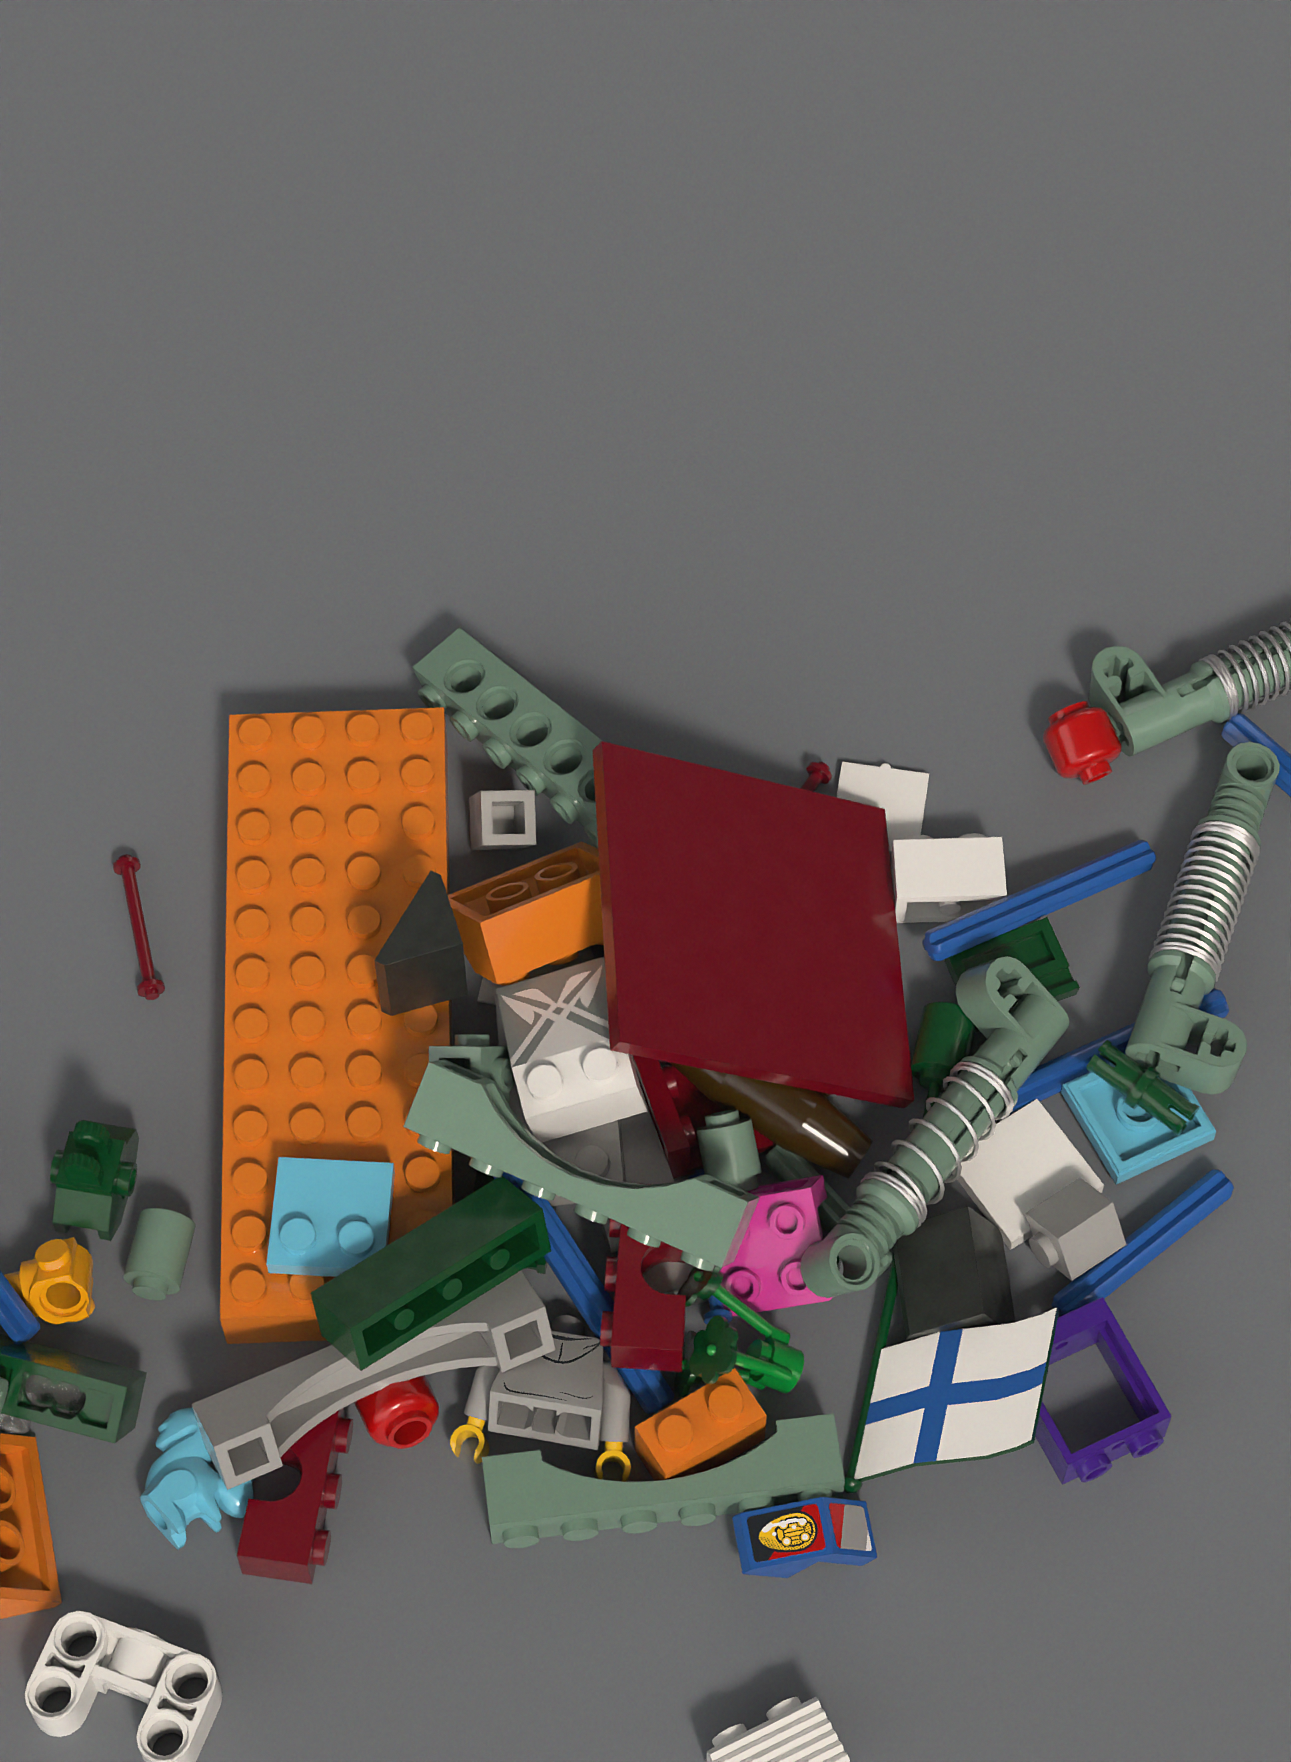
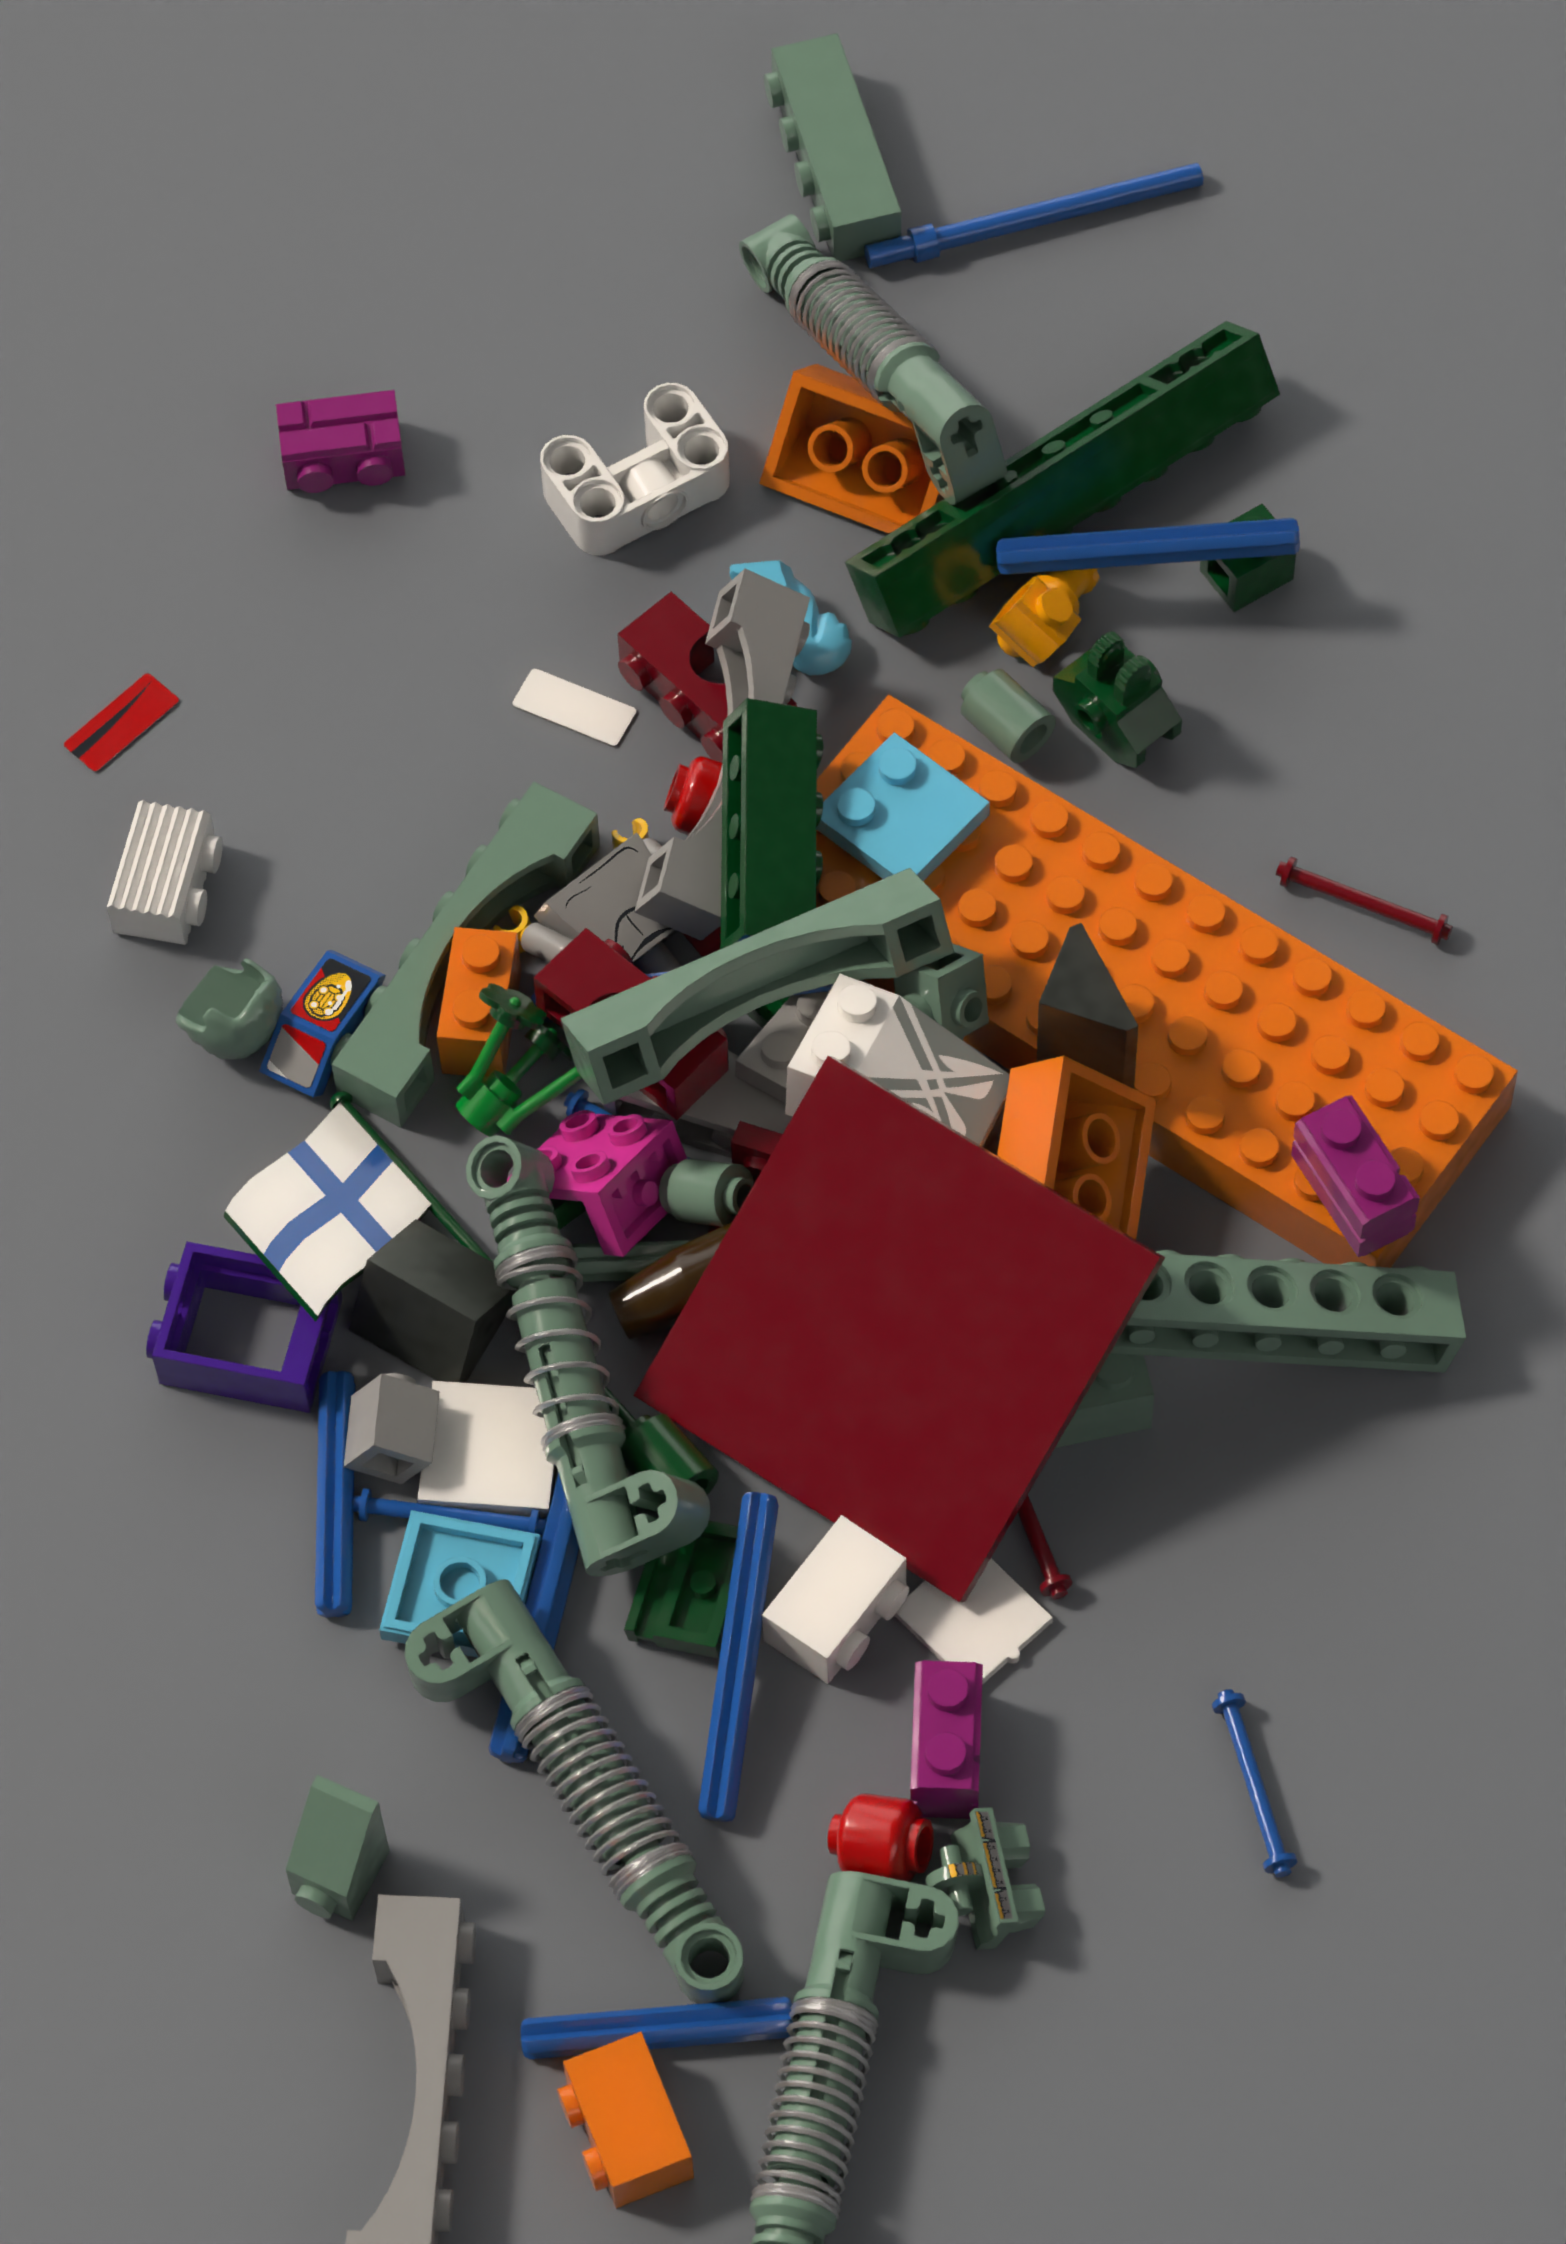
camera: 130 degrees right, 0 degrees up
(376, 1589) = (574, 707): none -> white sticker
(409, 726) = (1354, 1175): none -> magenta brick
(502, 820) = (1214, 1228): light grey brick -> none
(814, 627) = (1278, 1861): none -> blue axle
(852, 1604) = (232, 1010): none -> sand green hair
(985, 749) = (946, 1738): none -> magenta brick
(1056, 673) = (978, 1878): none -> sand green hips
(1132, 1219) = (368, 1505): none -> blue axle
(1142, 1087) = (464, 1575): dark green pin -> none

